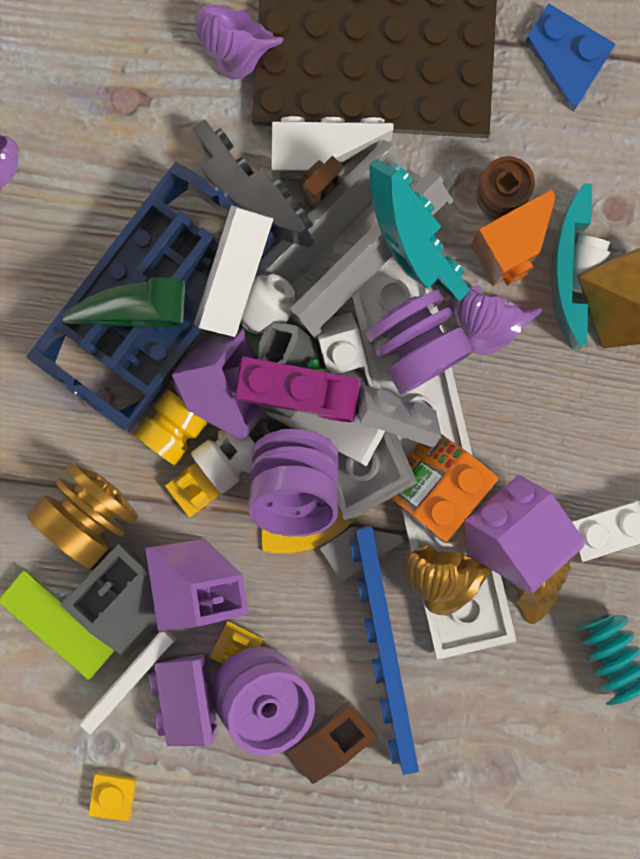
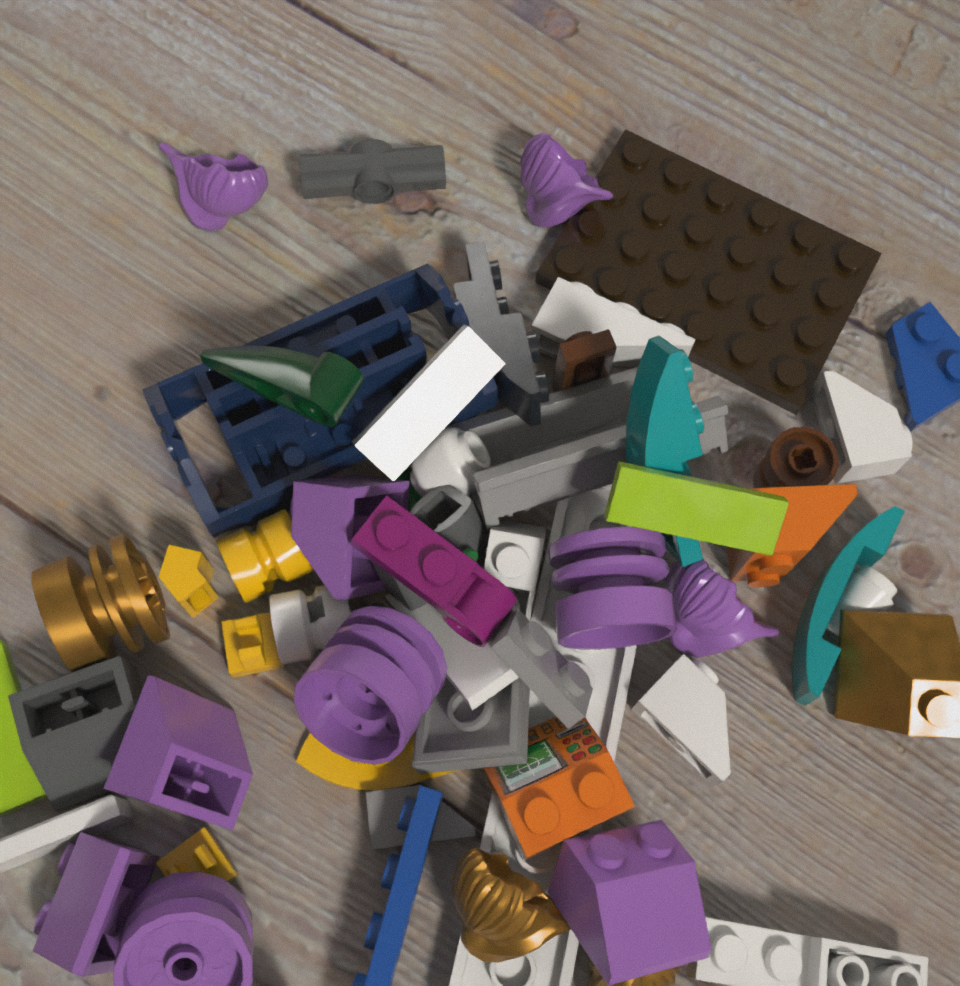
camera: 25 degrees right, 15 degrees down
(89, 96) = (372, 171): none -> dark grey piece
(127, 470) = (188, 578): none -> yellow piece
(452, 265) = (695, 508): none -> lime tile
(507, 395) = (690, 717): none -> white slope
(537, 133) = (861, 428): none -> white slope

